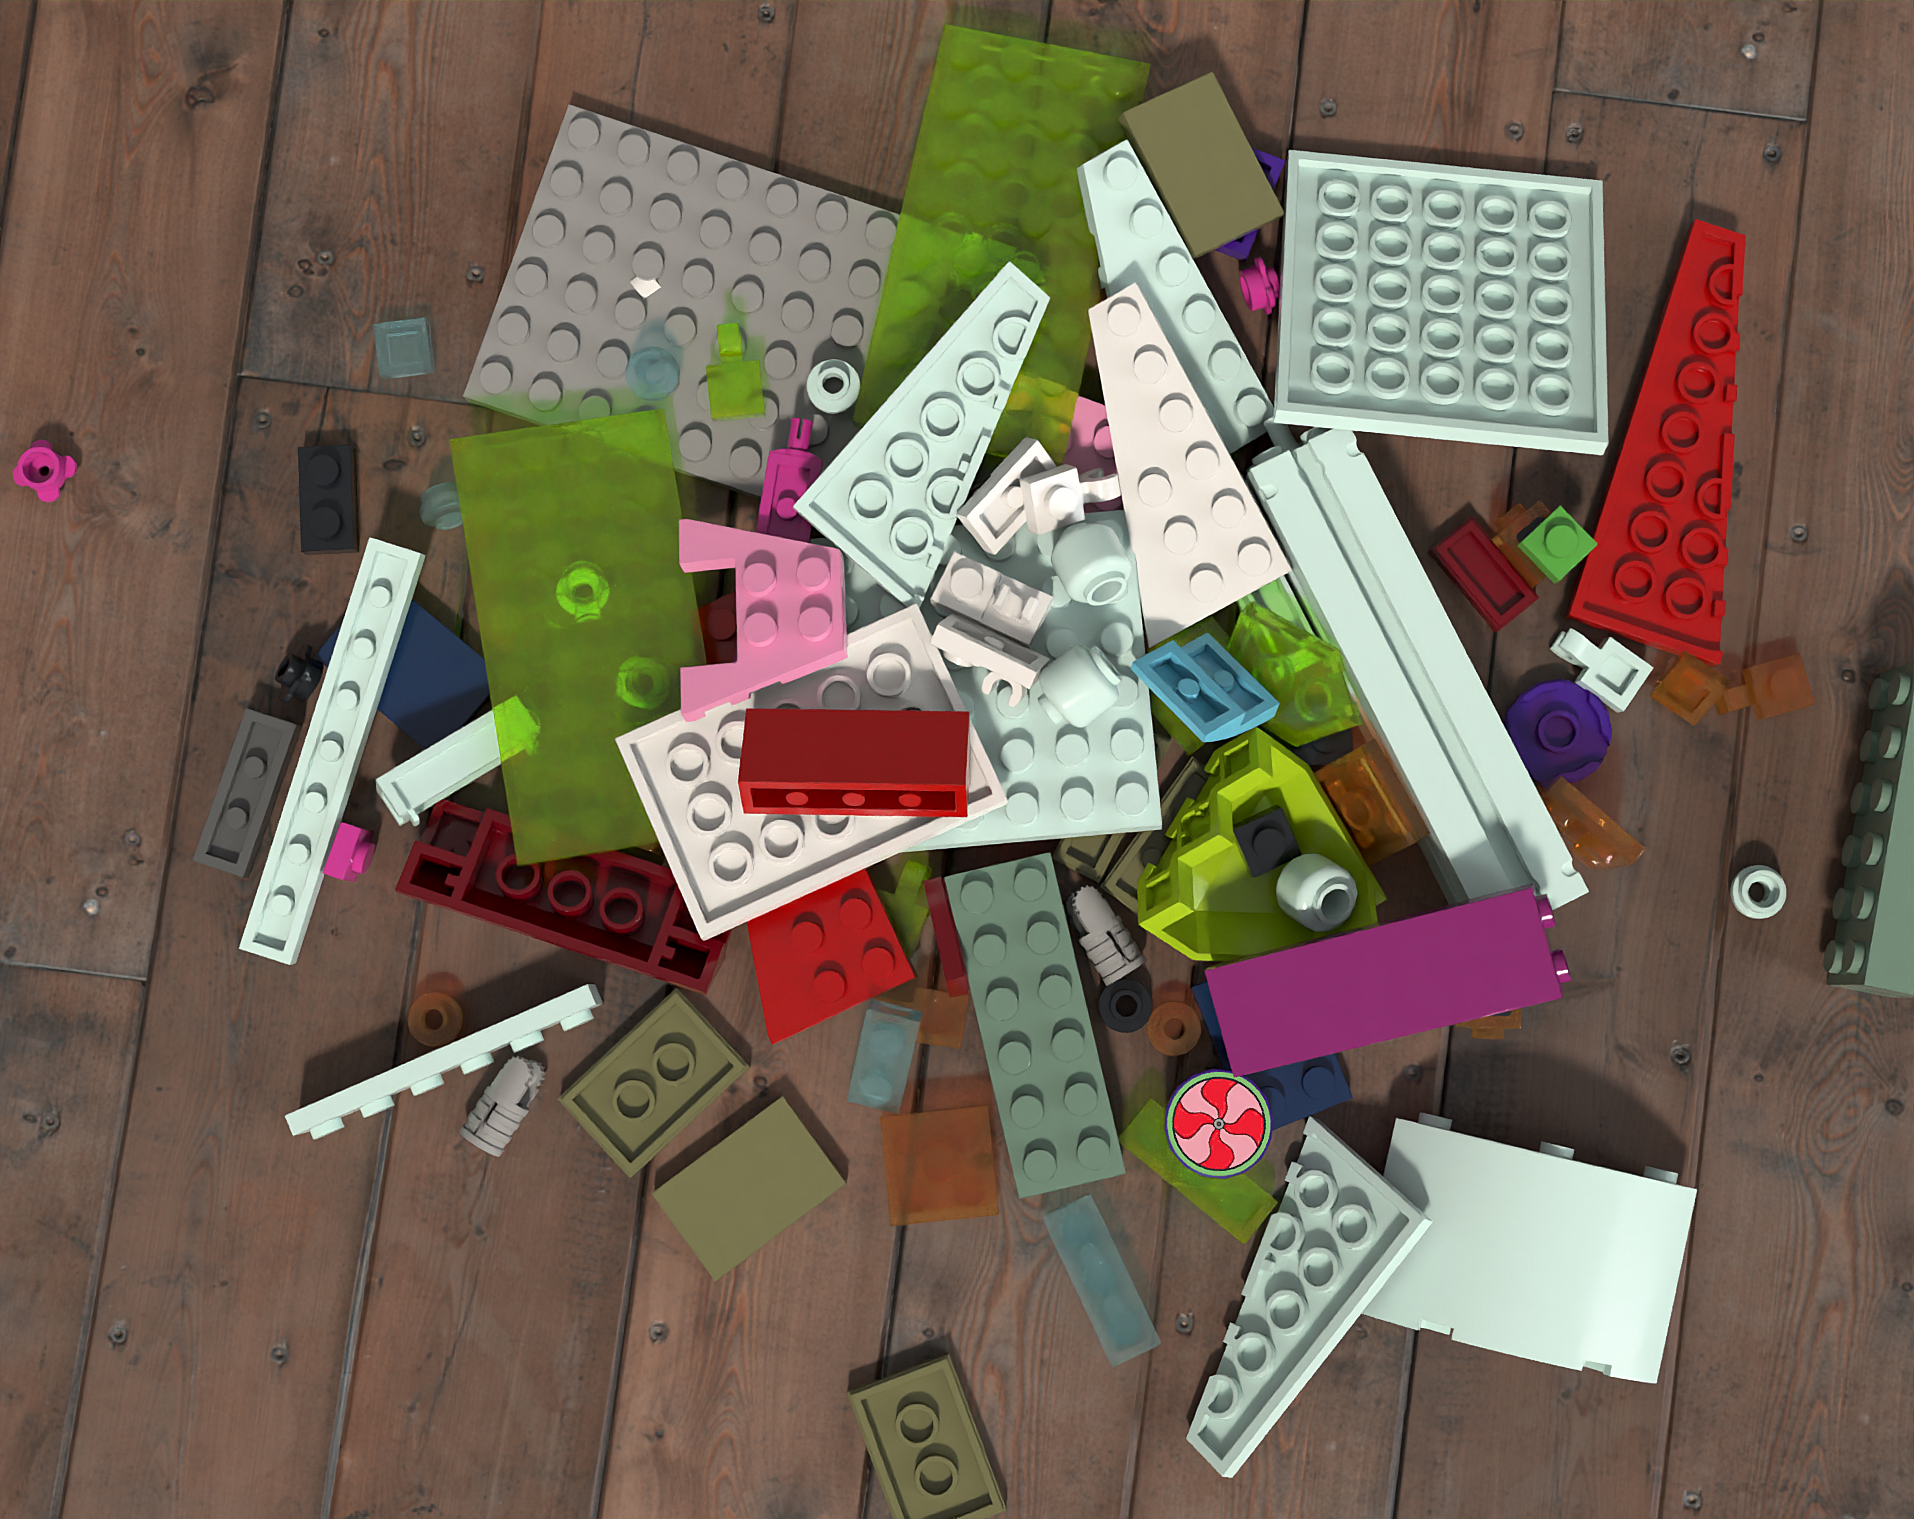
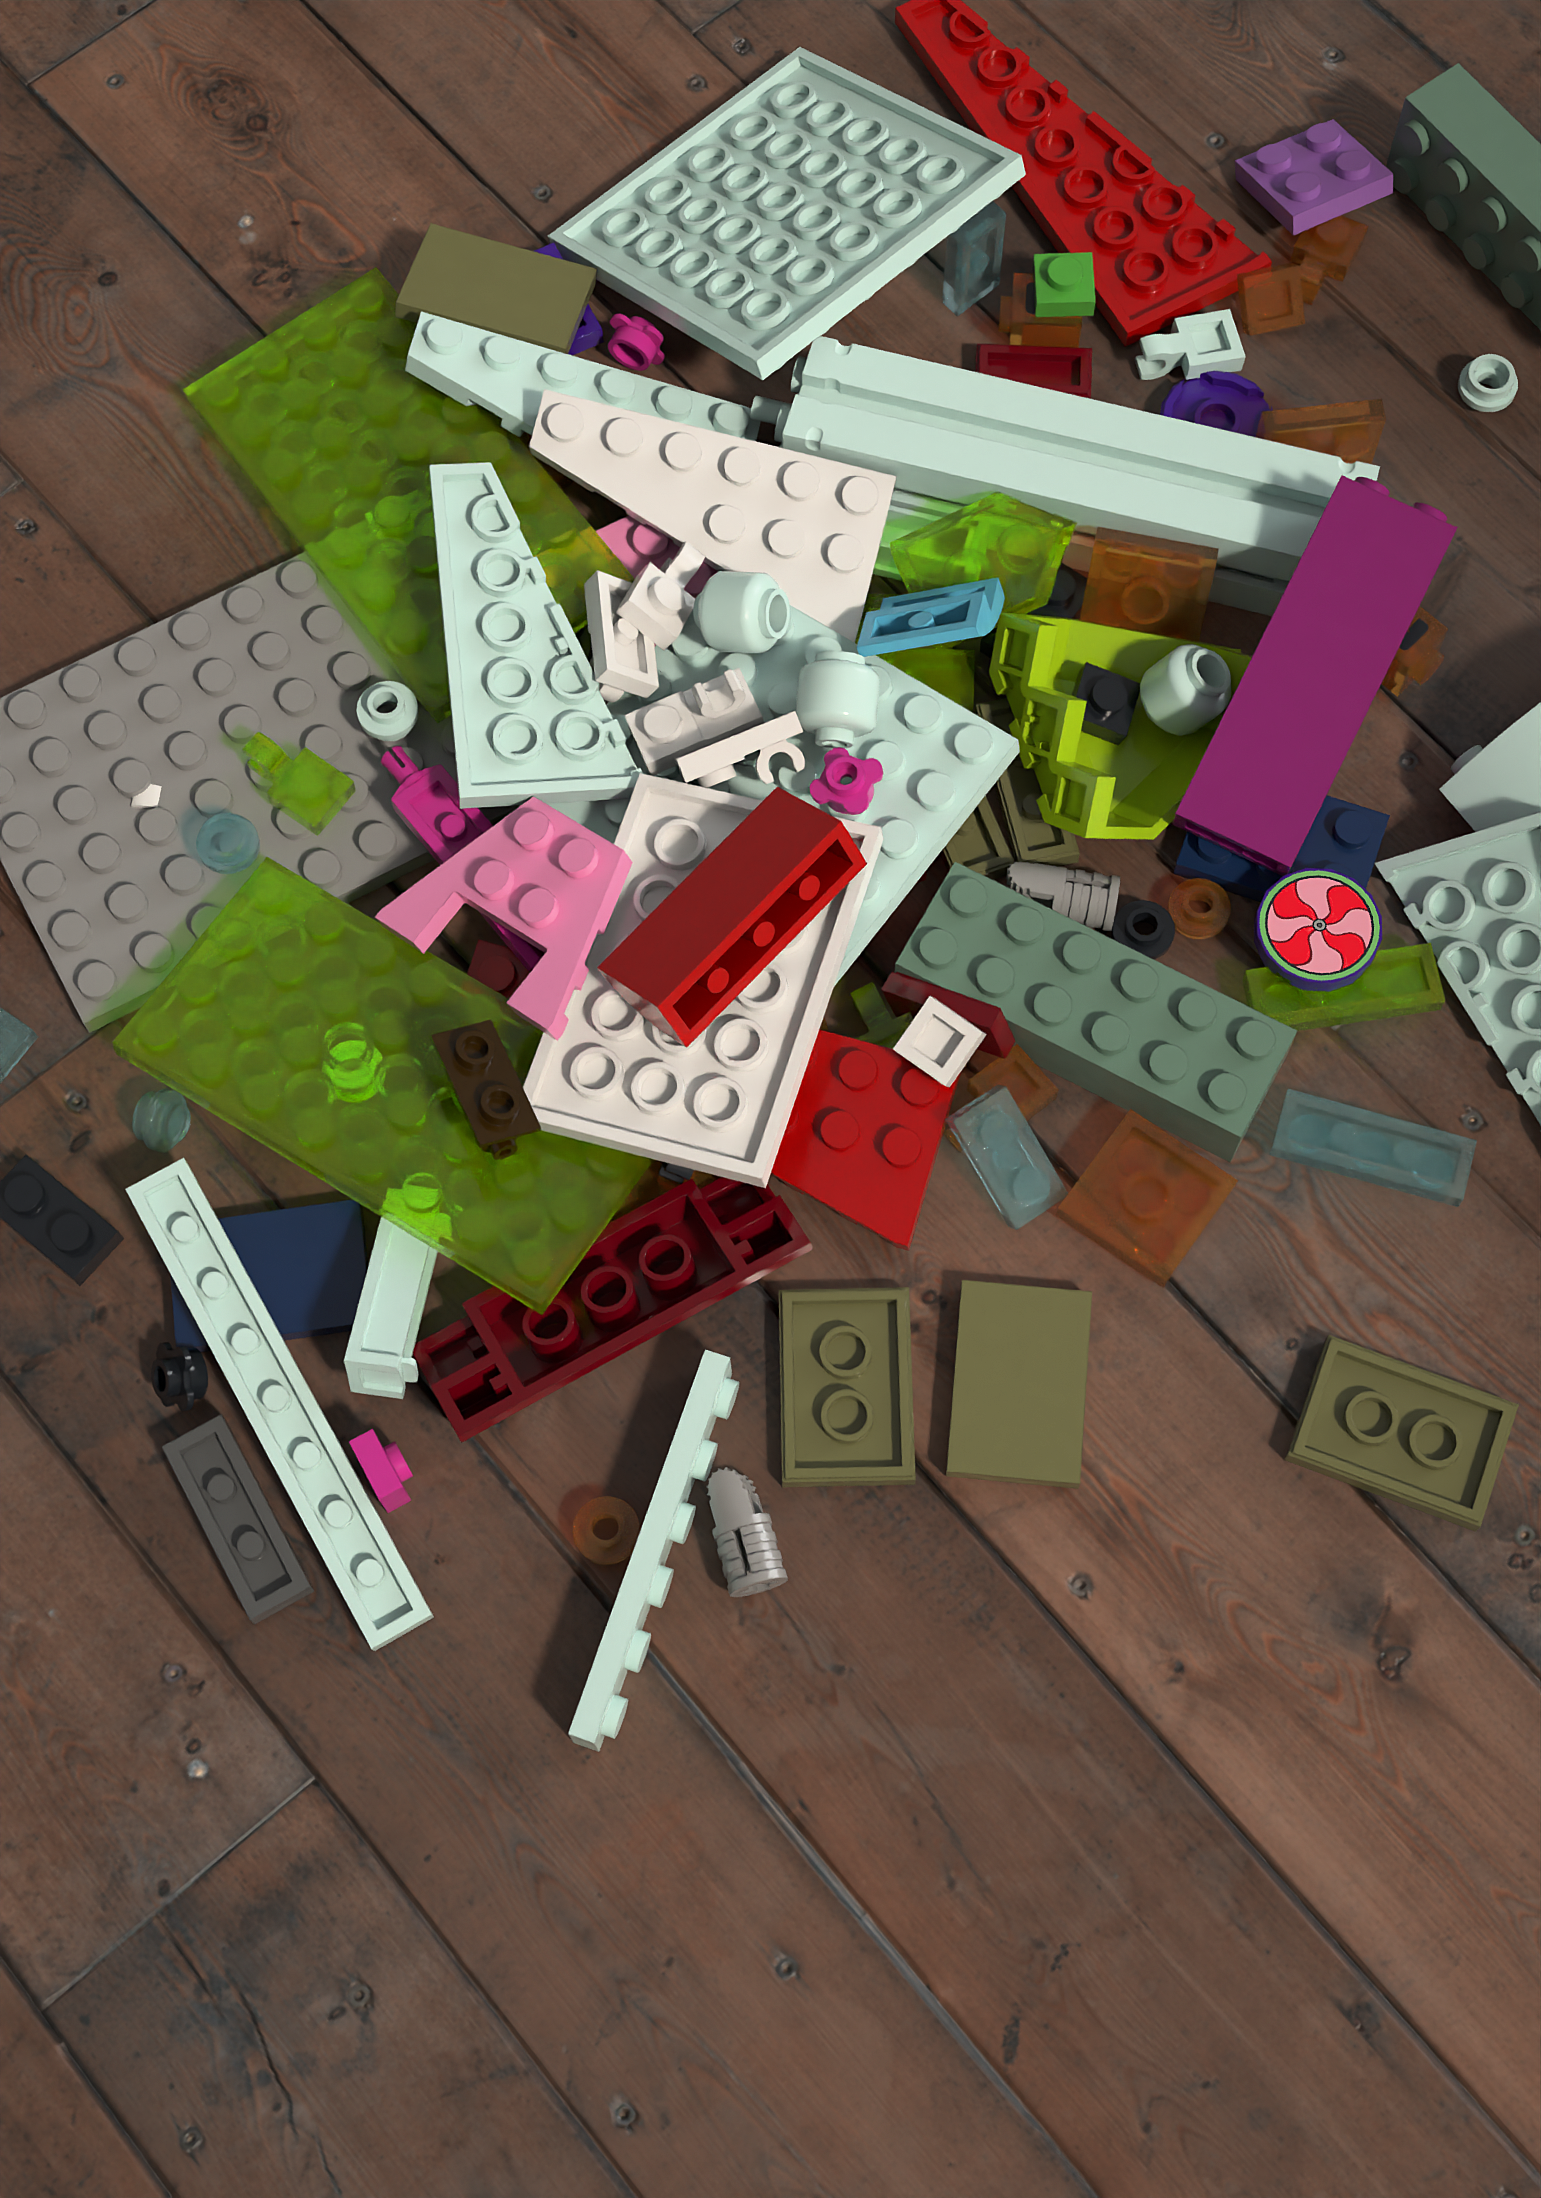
camera: 45 degrees left, 15 degrees down
(616, 705) = (486, 1087): none -> dark brown hinge
(910, 955) = (939, 1041): none -> white plate
(1027, 758) = (848, 798): none -> dark pink plate
(1525, 465) = (974, 259): none -> clear light blue plate
(1820, 633) = (1313, 176): none -> medium lavender plate

